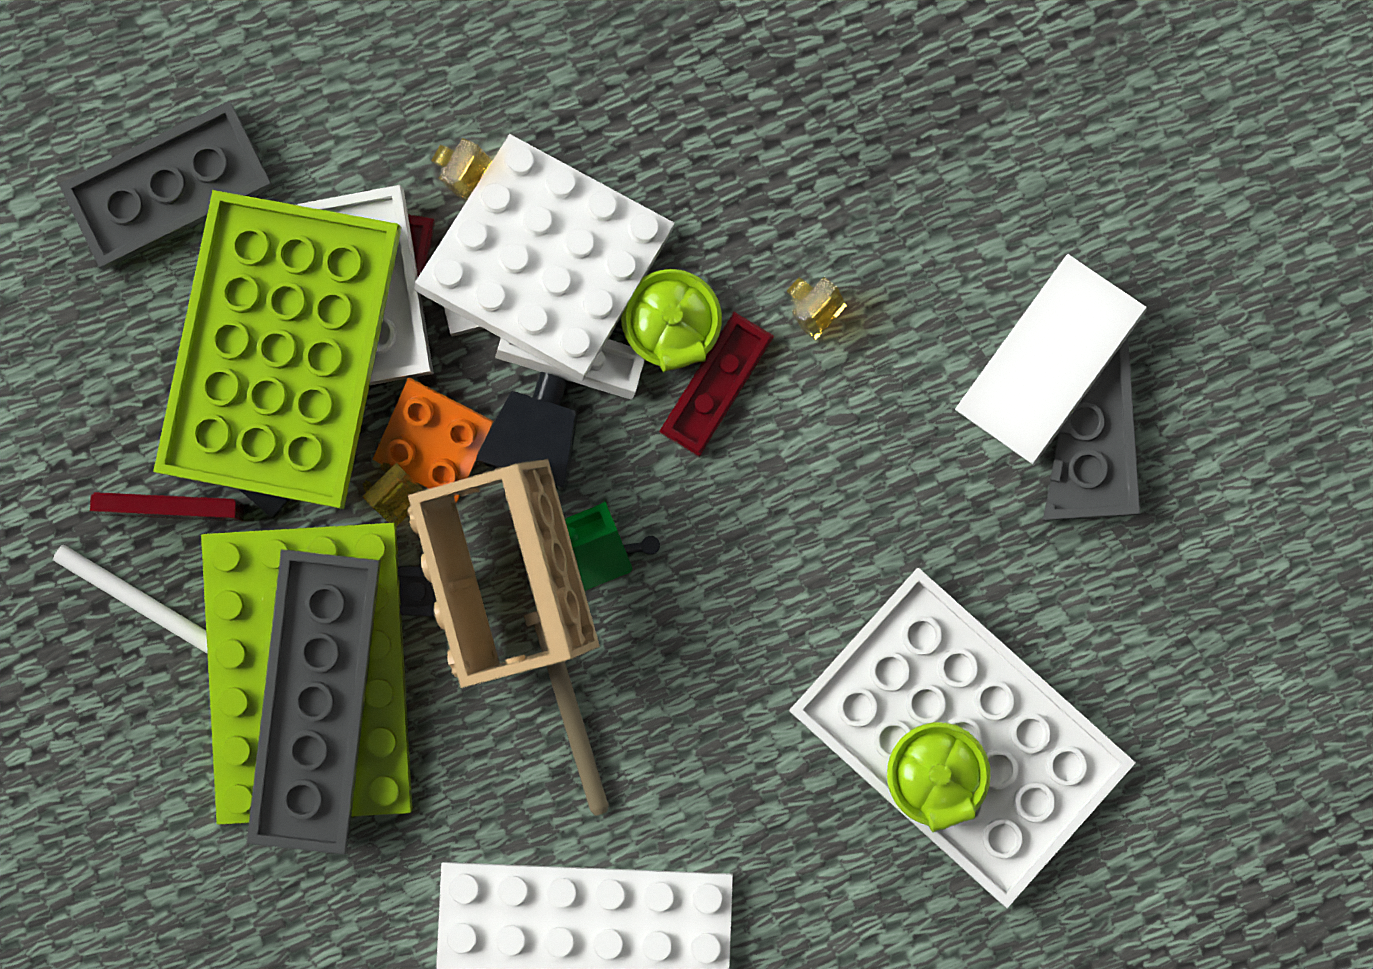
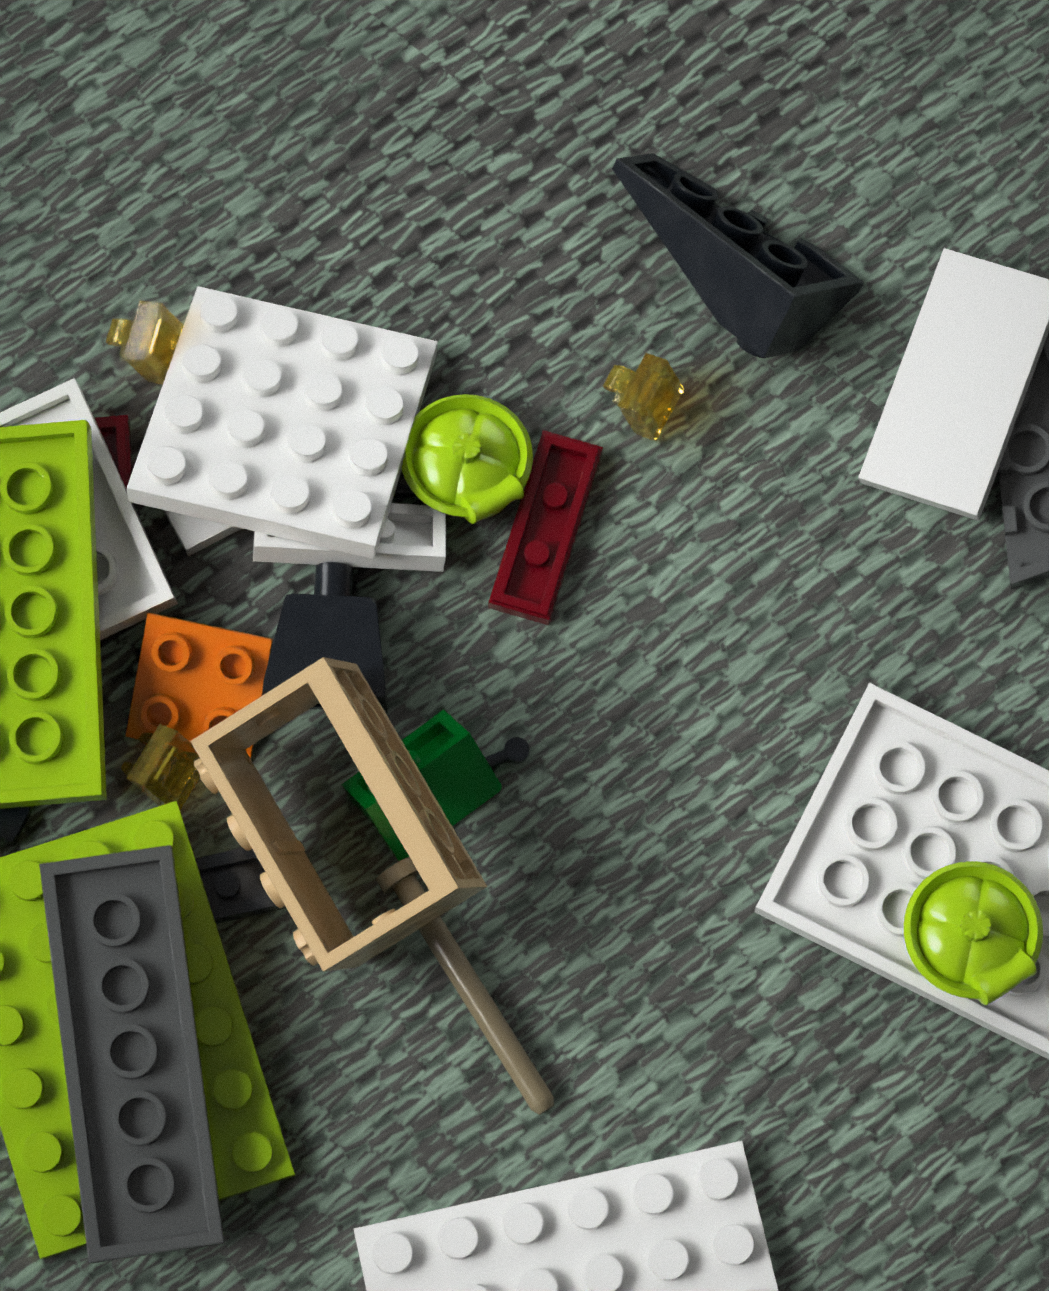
camera: 15 degrees left, 10 degrees down
(916, 233) = (747, 278): none -> black wedge

